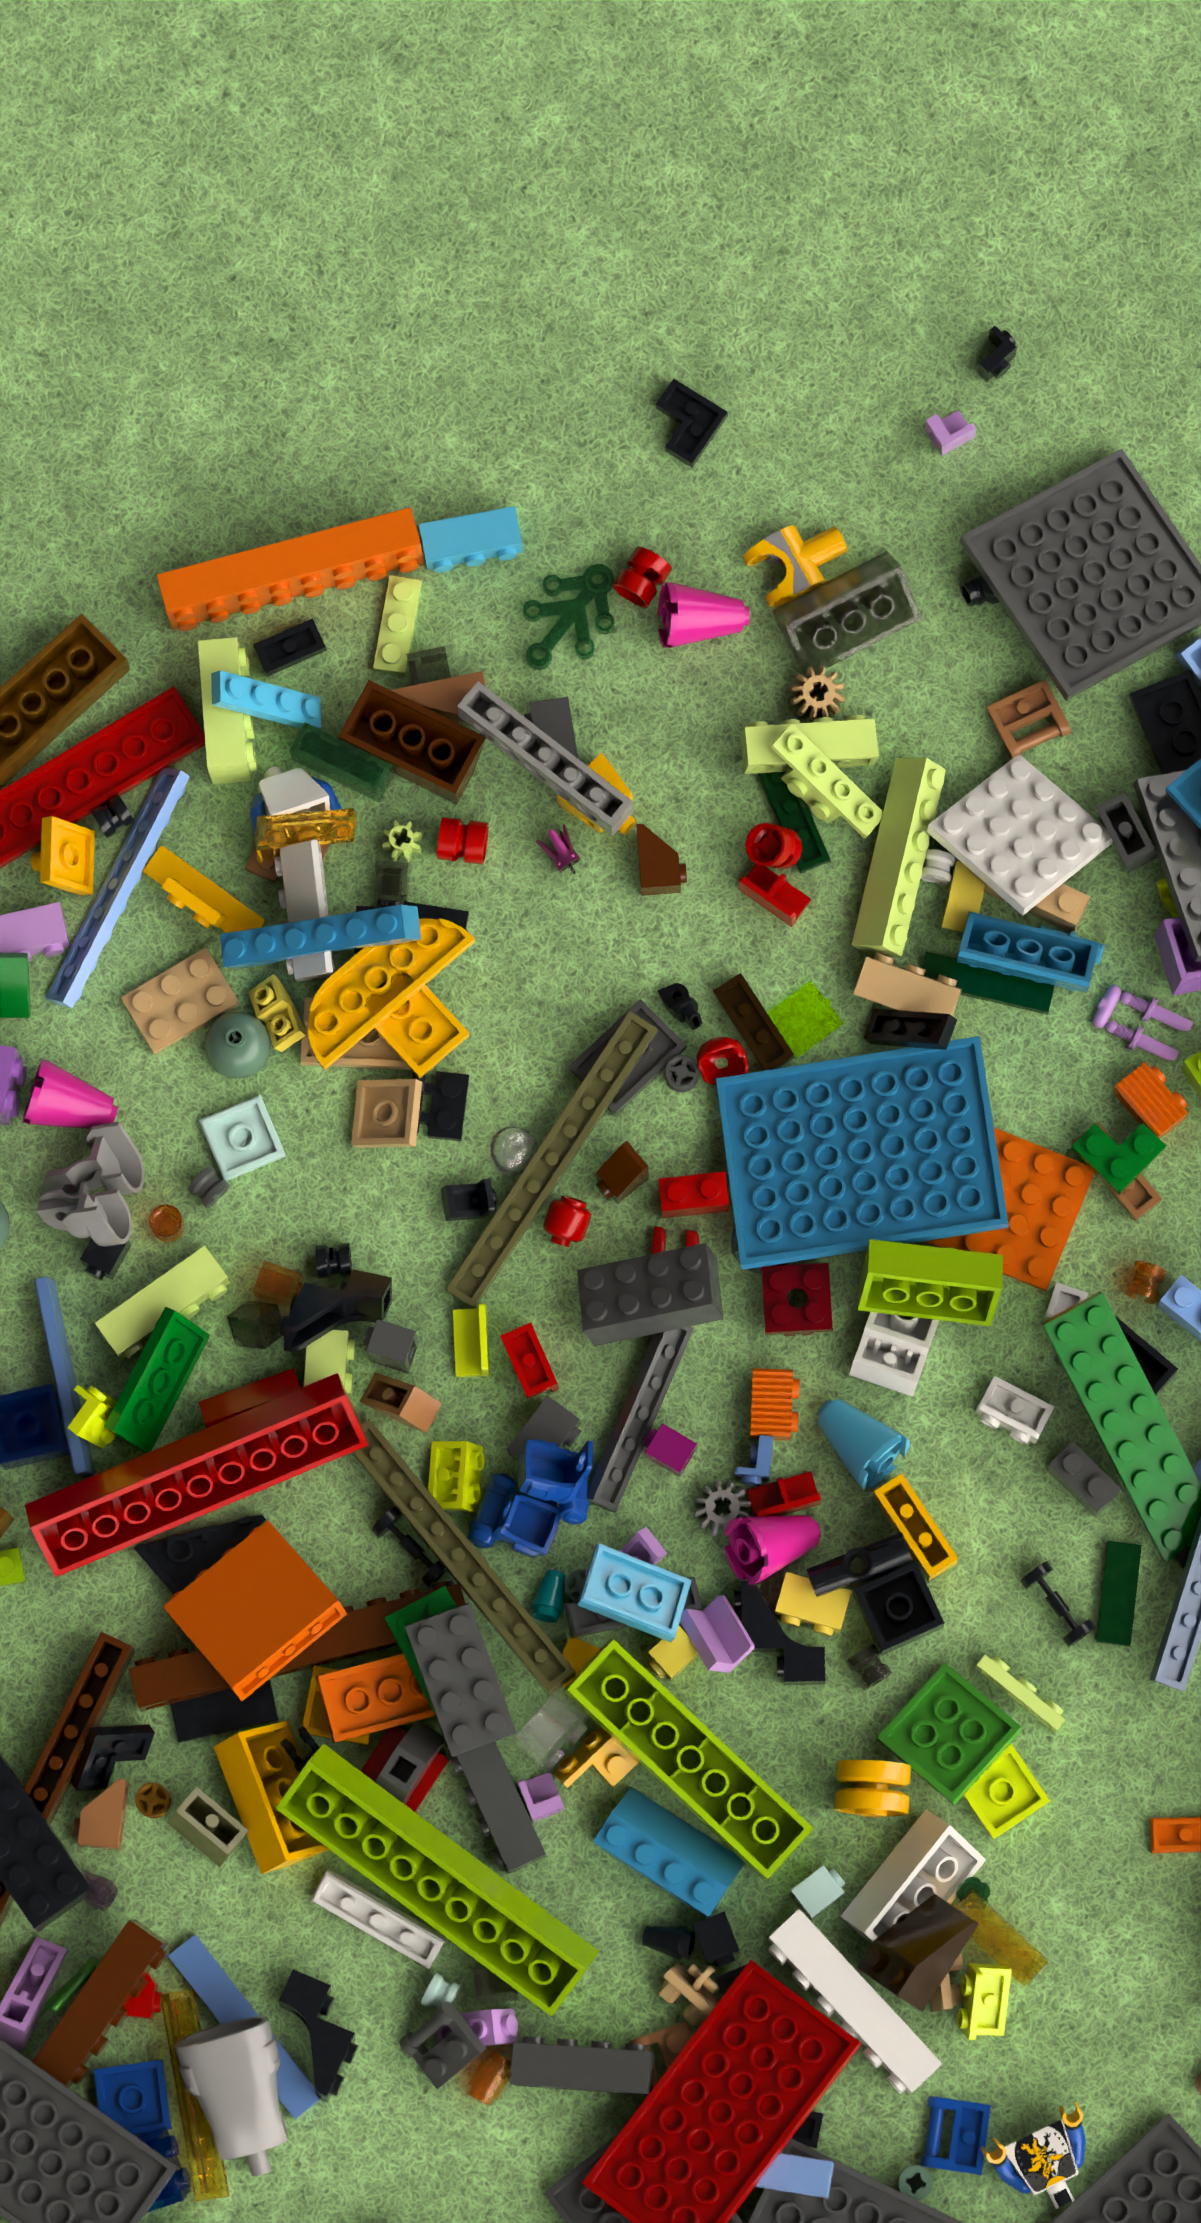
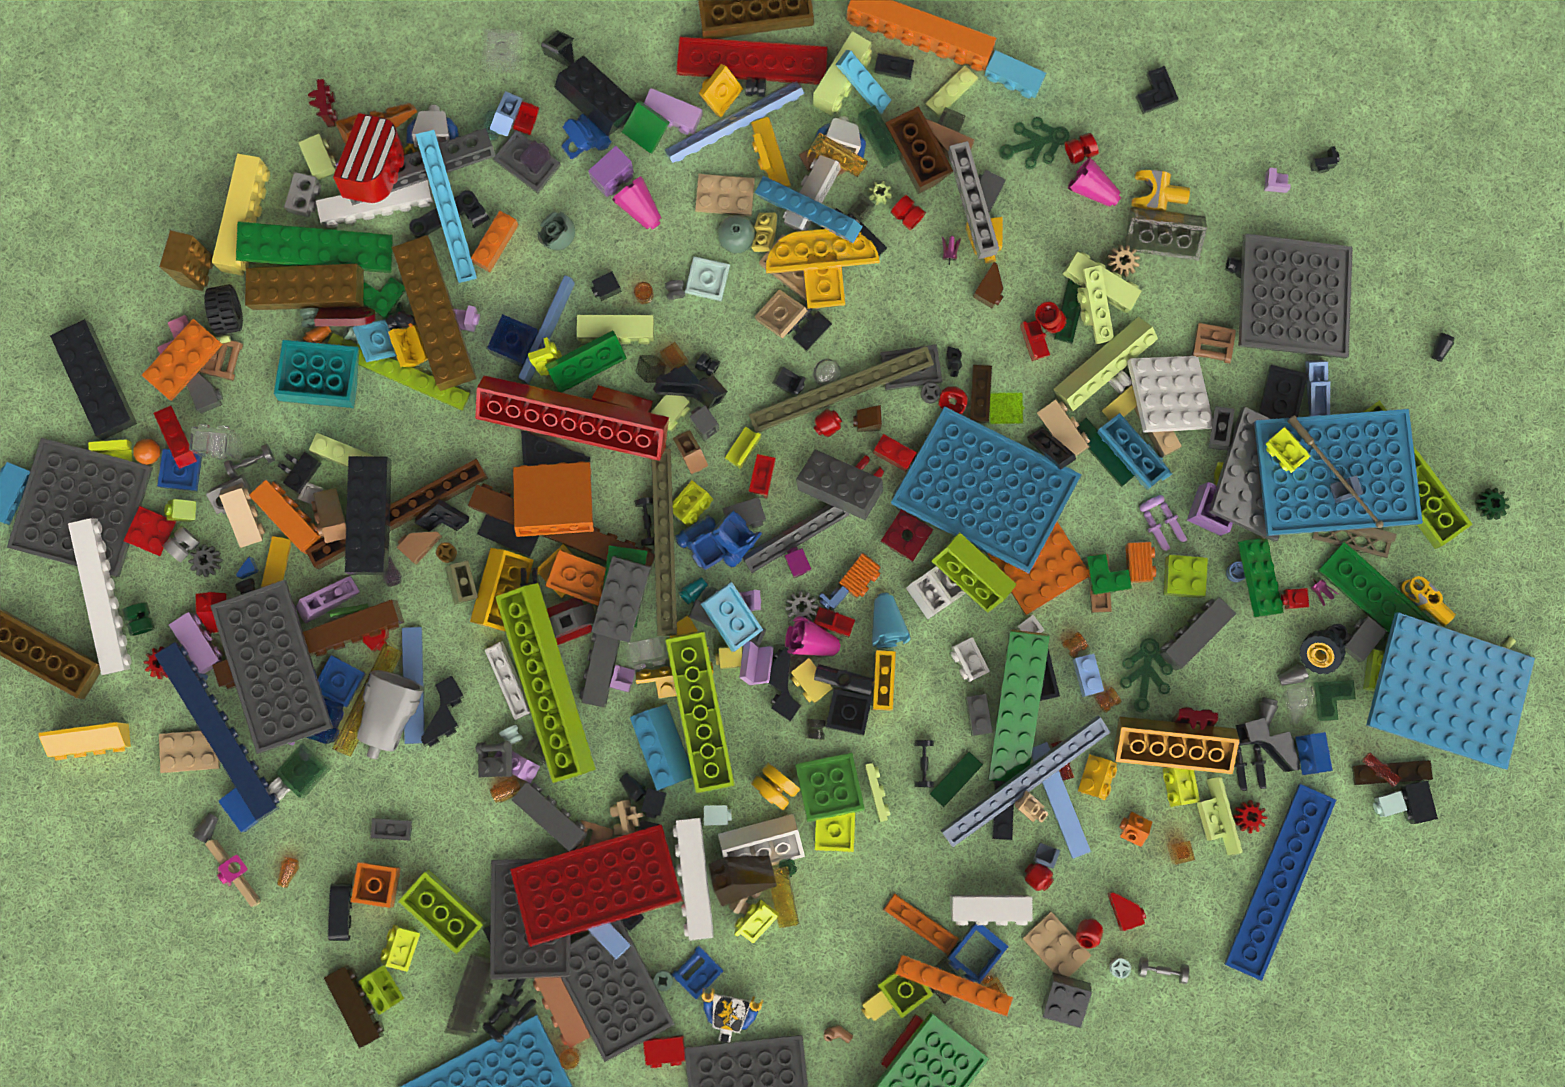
camera: 30 degrees right, 5 degrees up
(102, 1216) = (614, 267): light grey piece -> none

